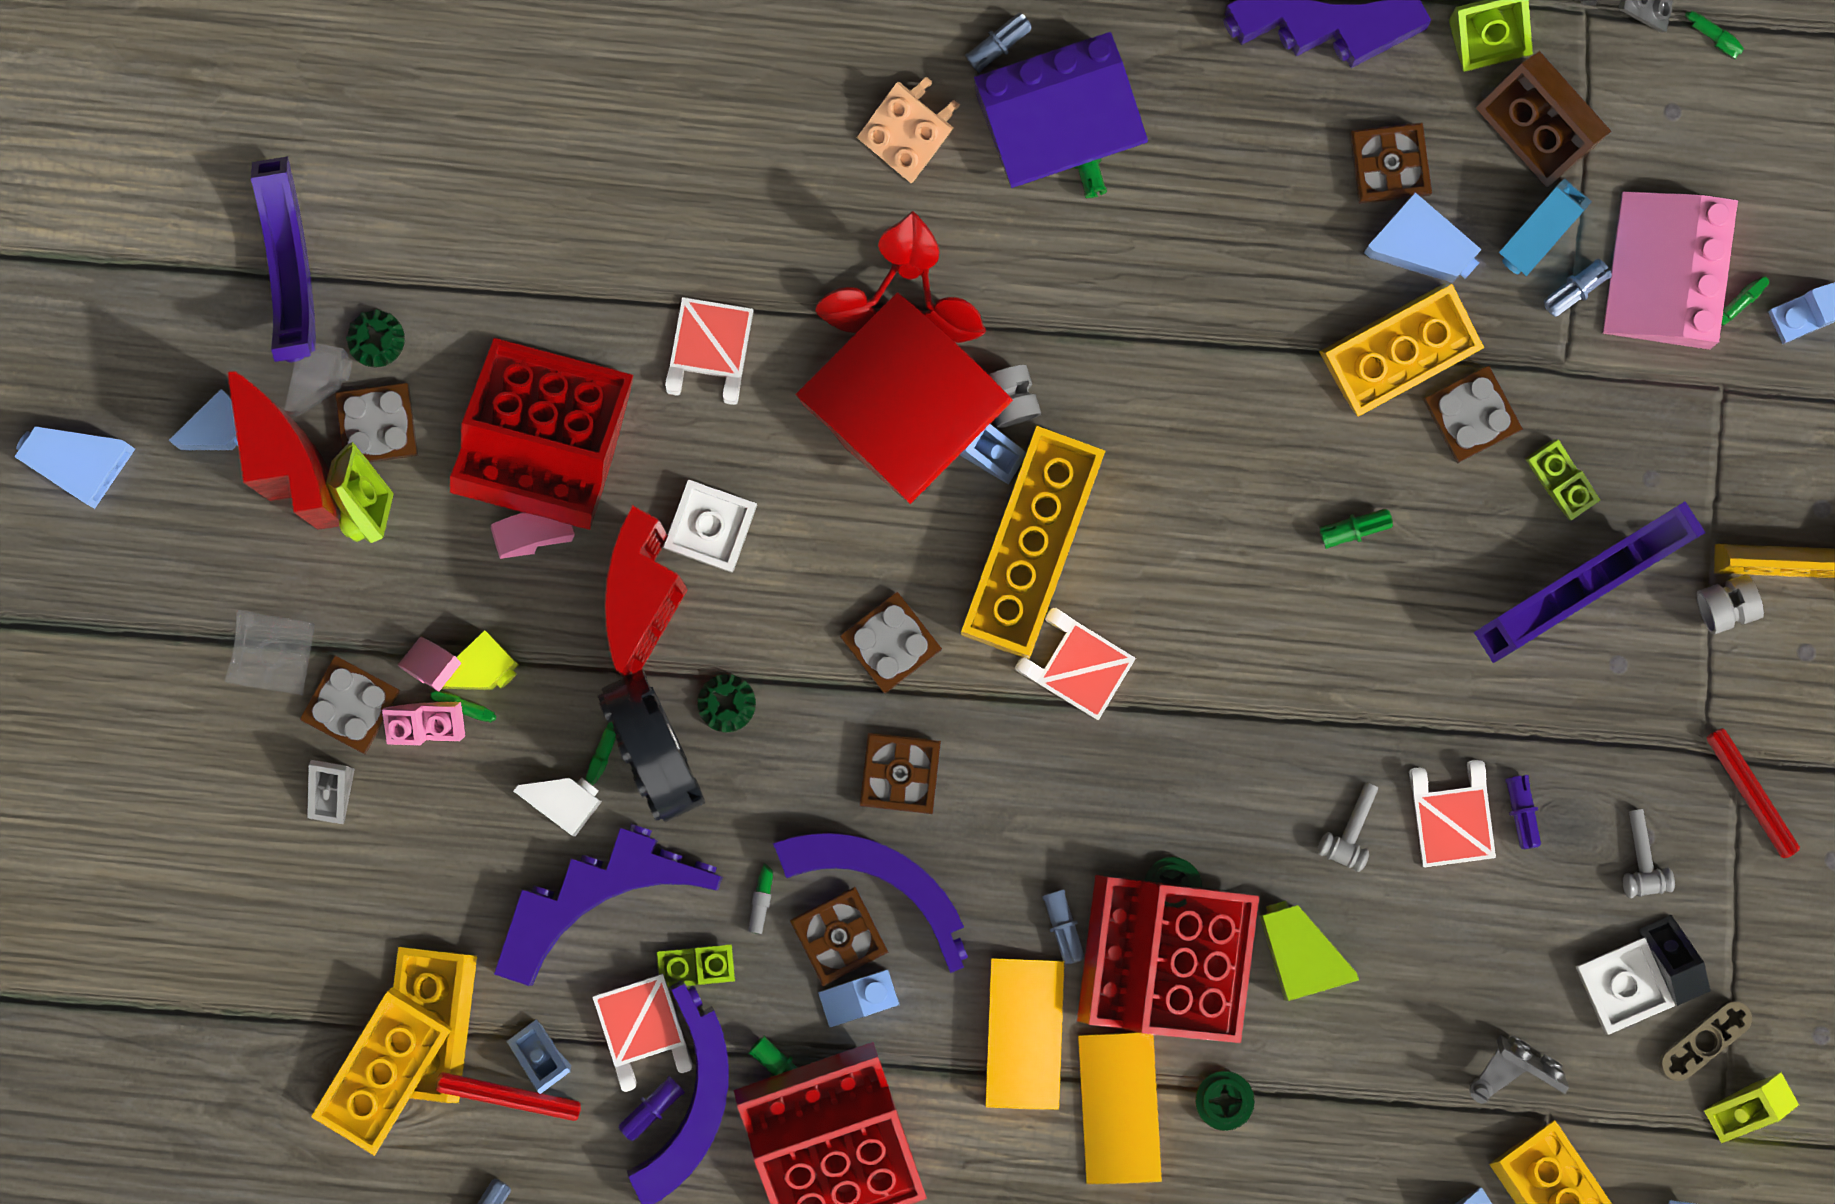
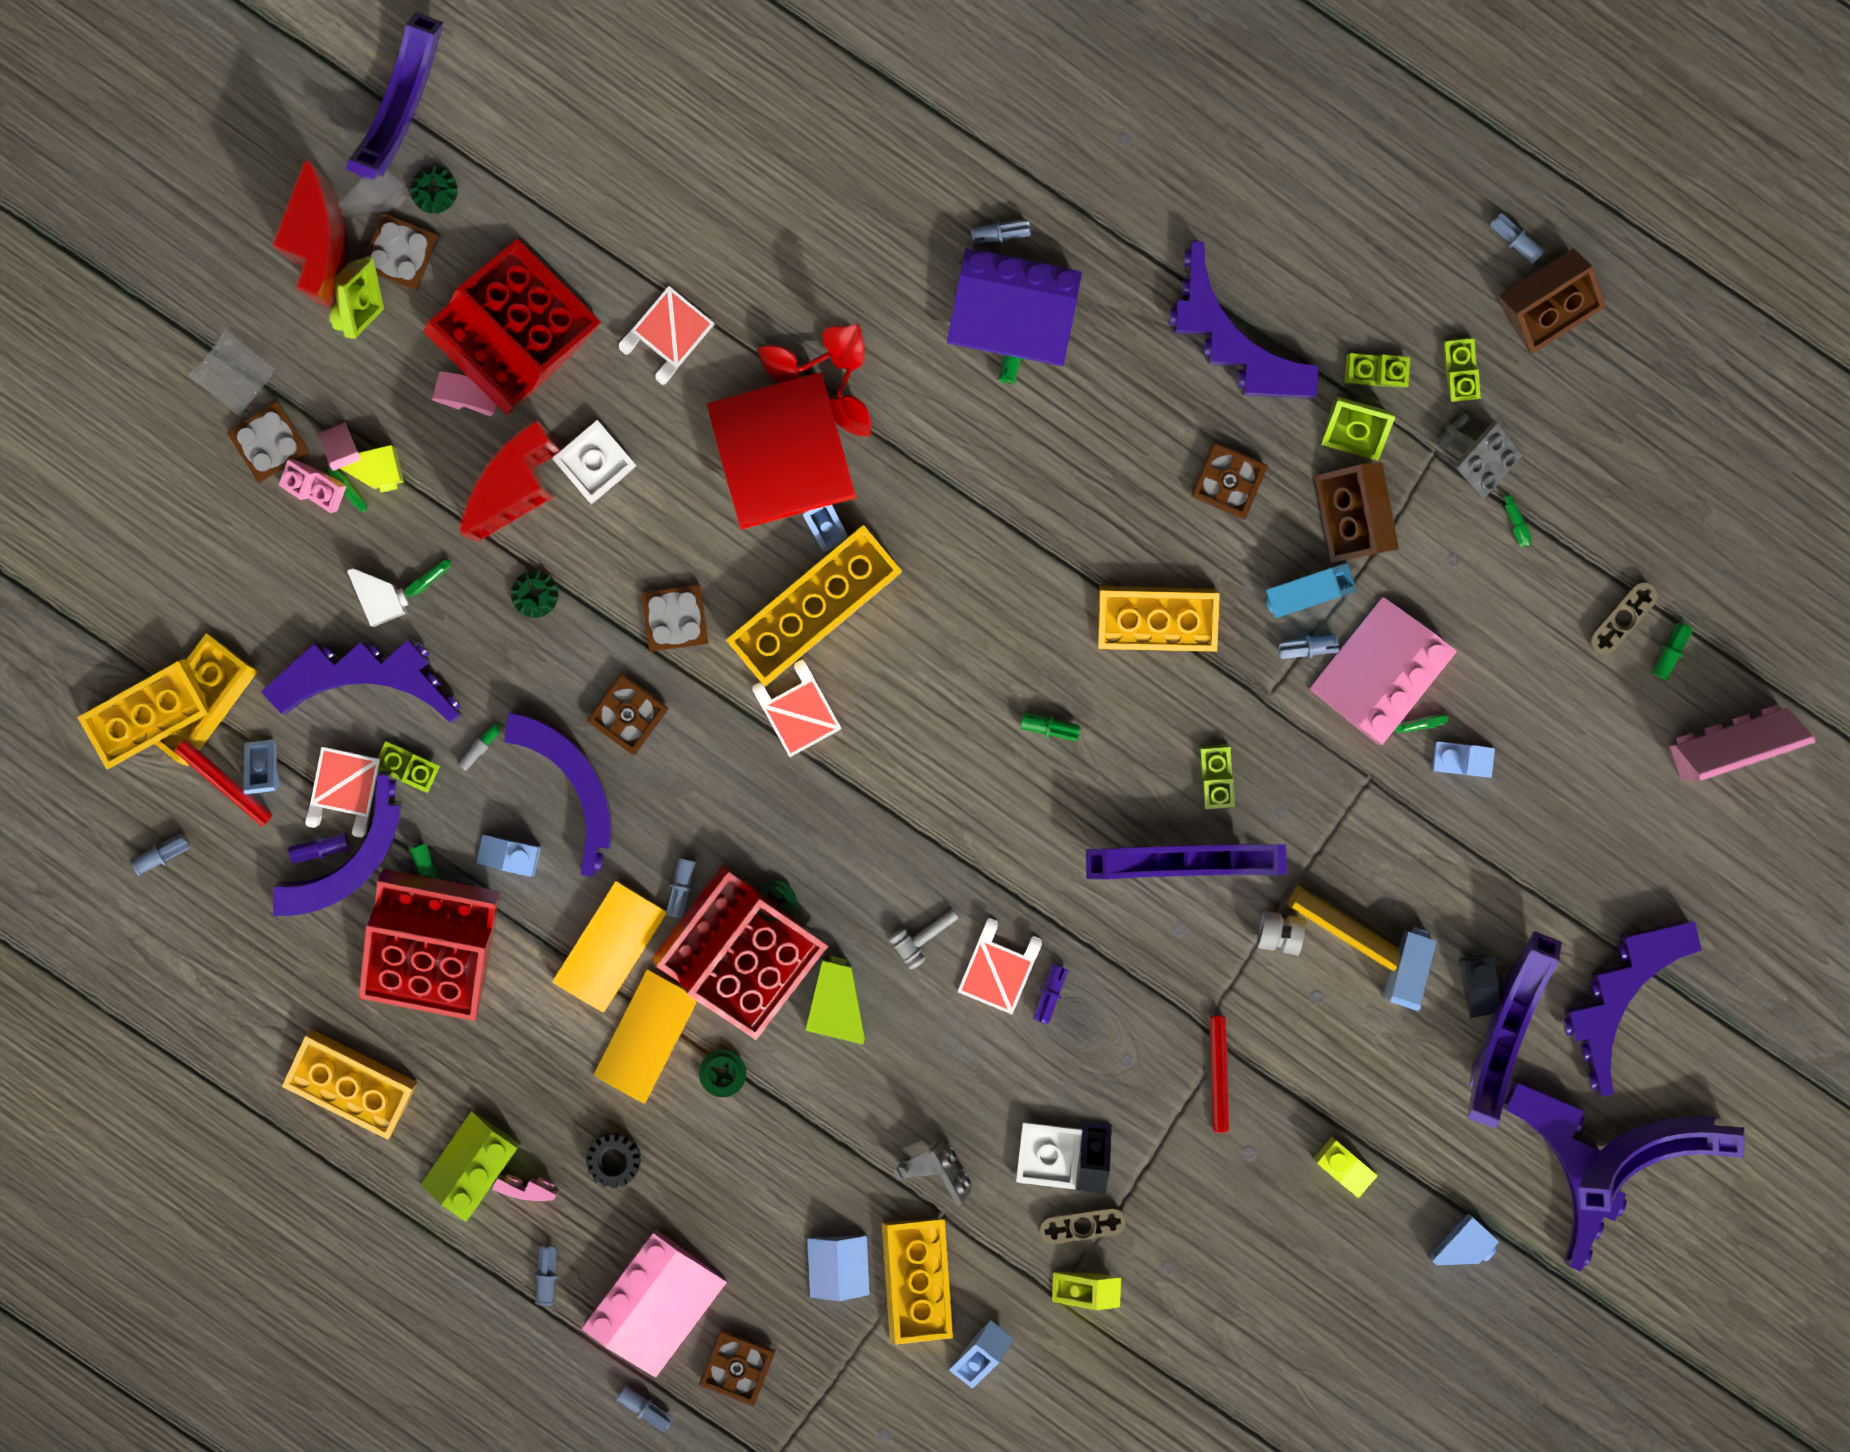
camera: 30 degrees right, 5 degrees up
(75, 461) = (169, 156): light blue slope -> none
(210, 427) = (276, 185): light blue slope -> none
(328, 791) = (219, 494): light grey slope -> none
(650, 747) = (459, 596): black piece -> none
(839, 936) = (519, 803): reddish brown piece -> none
(906, 130) = (896, 258): light nougat plate -> none
(1016, 384) = (866, 487): light grey wheel -> none
(1424, 243) = (1218, 552): light blue slope -> none
(1473, 414) = (1181, 694): light grey piece -> none
(1647, 880) = (1109, 1091): light grey piece -> none

